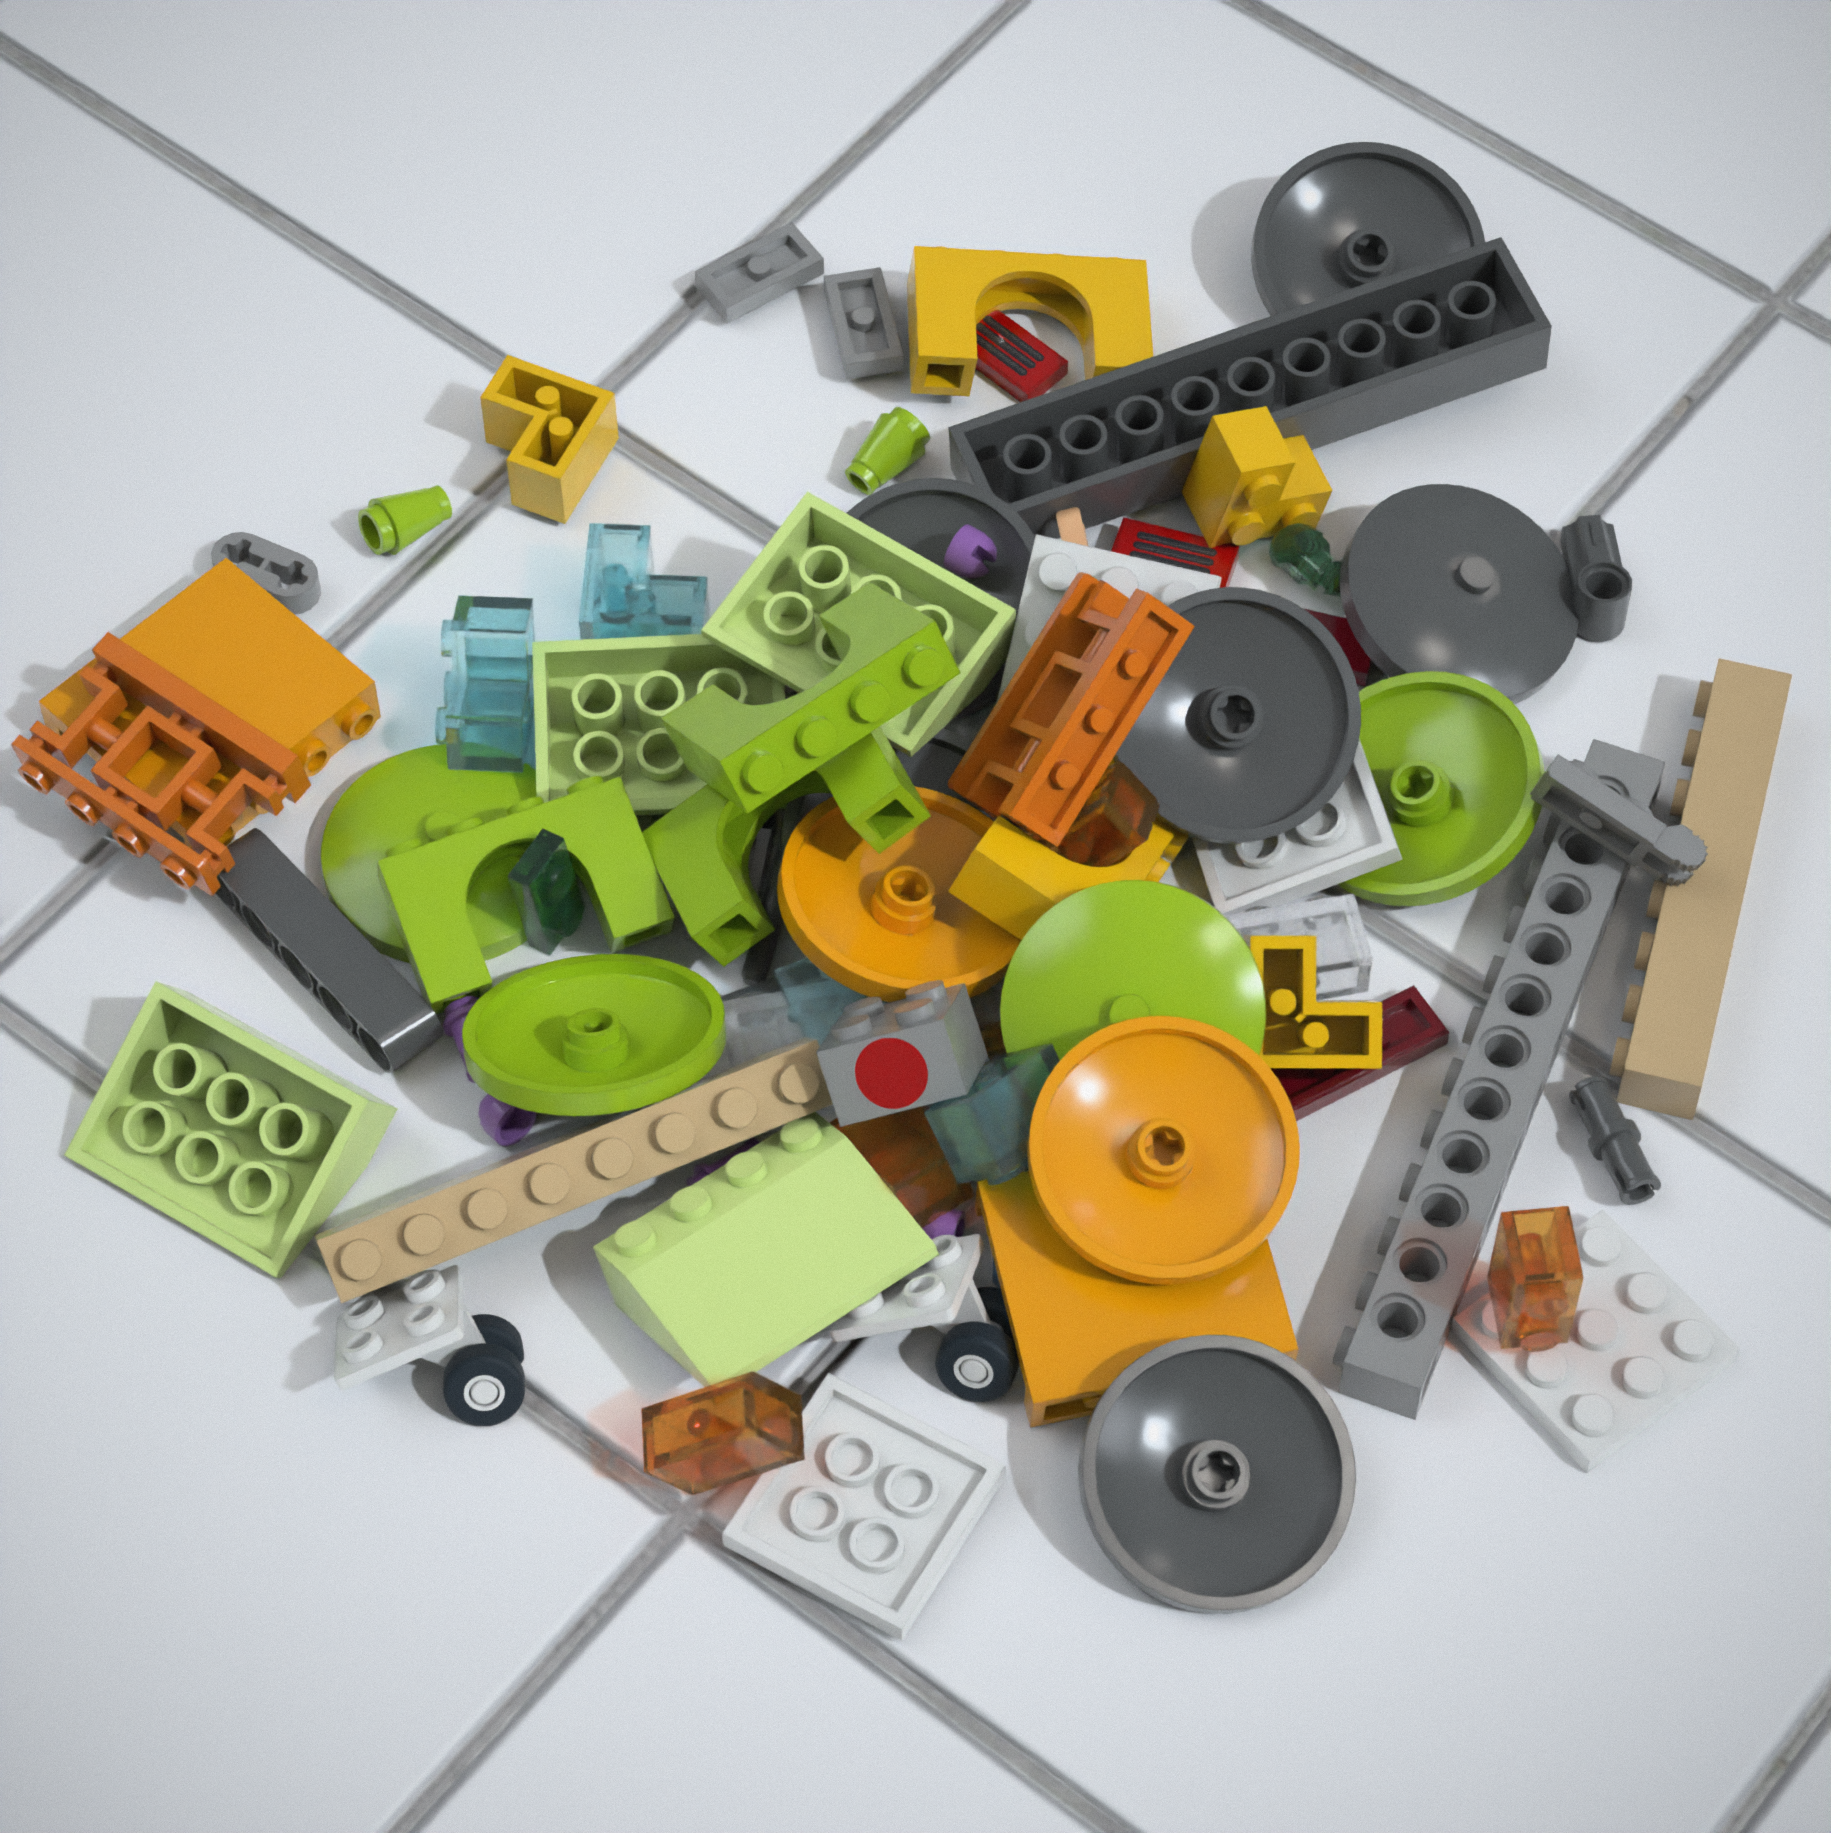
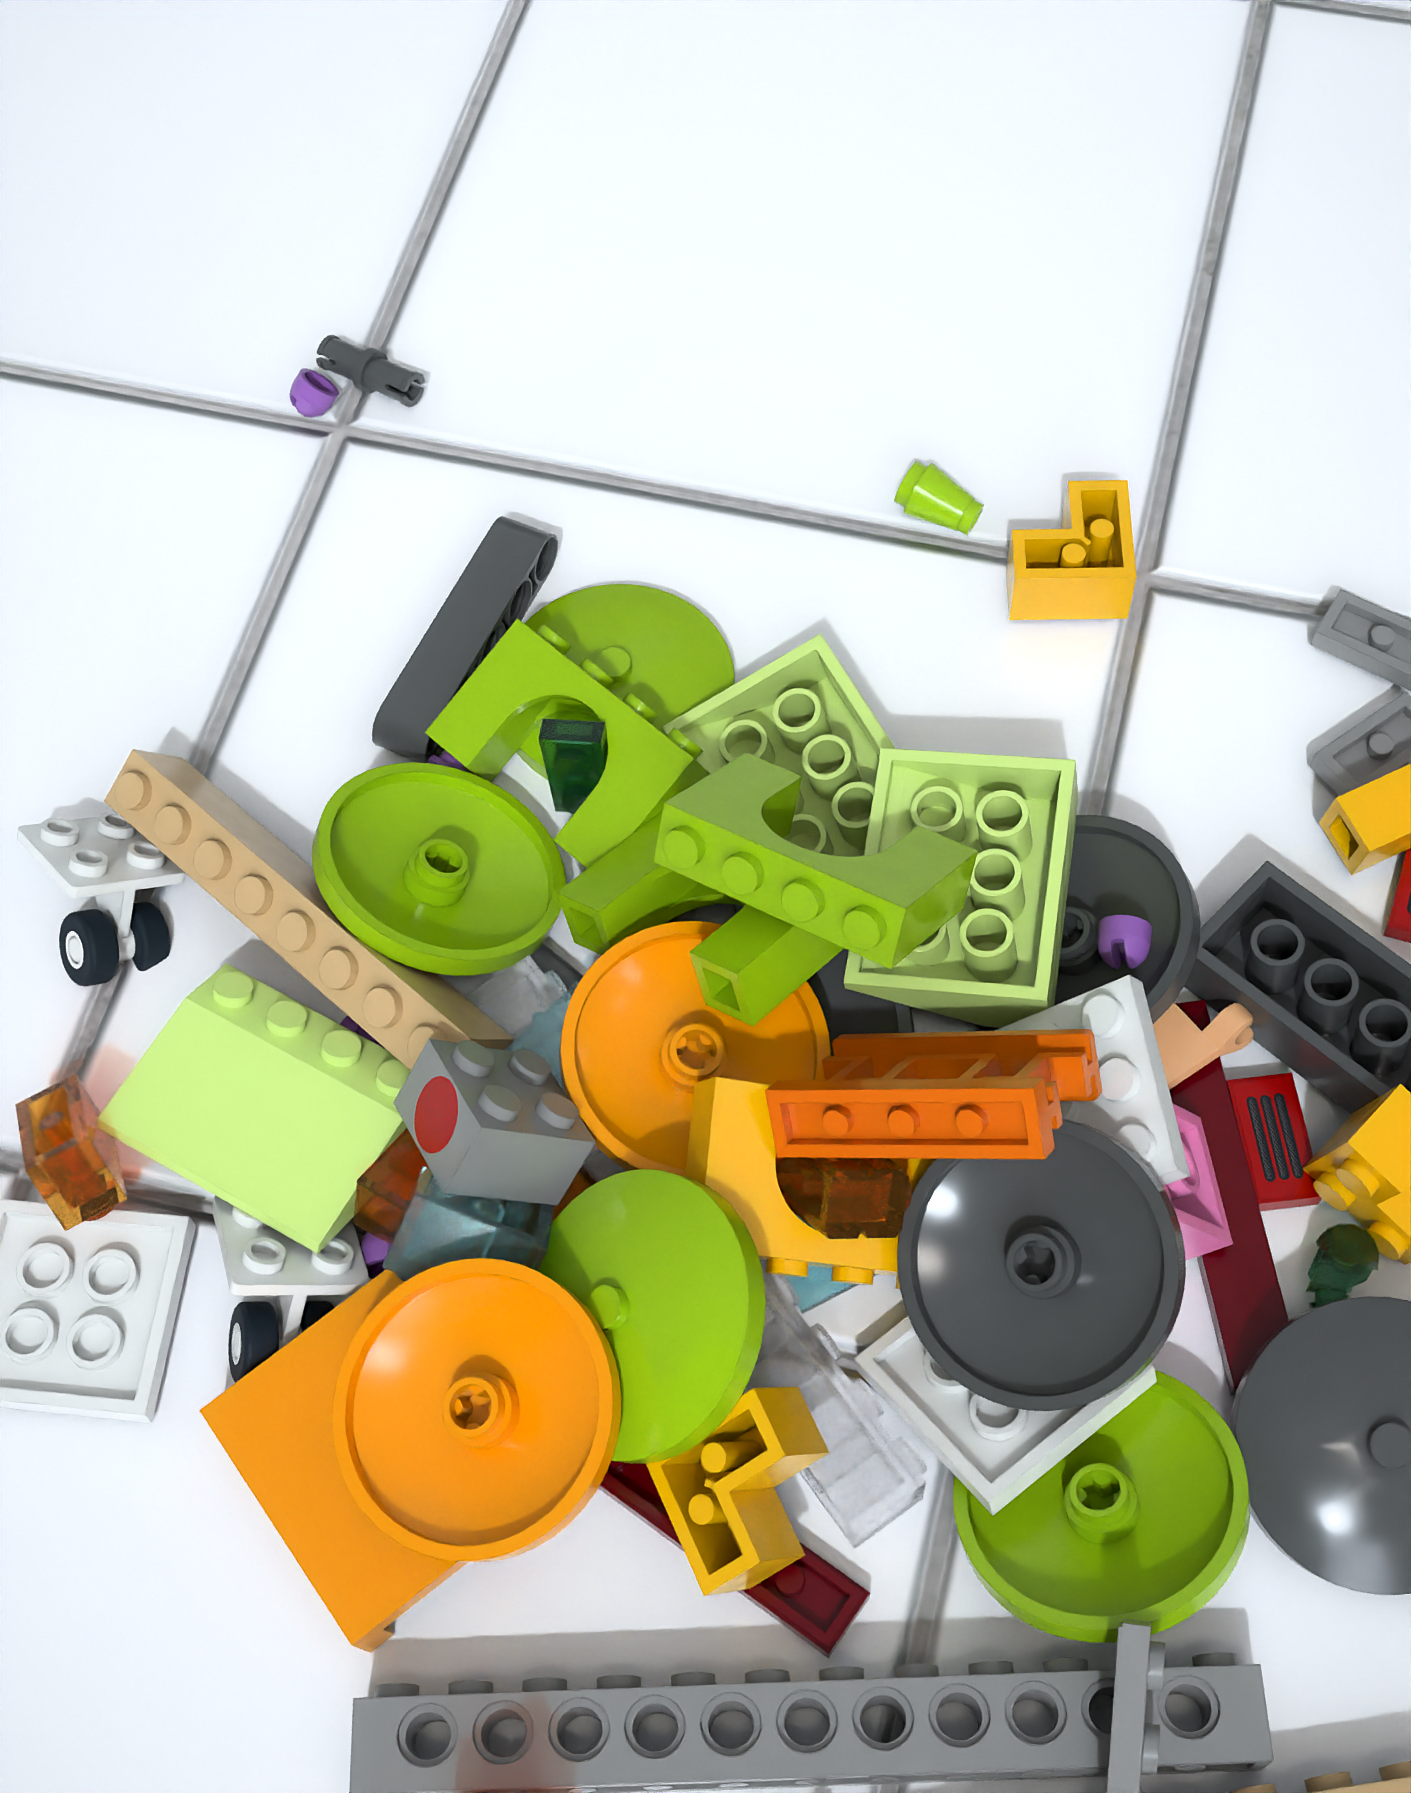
camera: 70 degrees right, 5 degrees up
(187, 724) = (599, 449): orange fence -> none
(228, 1129) = (268, 654): yellowish green slope -> none
(252, 660) = (661, 456): light orange panel -> none
(270, 567) = (838, 434): light grey beam -> none
(490, 684) = (794, 604): clear light blue brick -> none
(626, 597) = (934, 687): clear light blue brick -> none
(888, 449) = (1241, 833): lime cone -> none
(1217, 1474) = (189, 1623): dark grey dish -> none

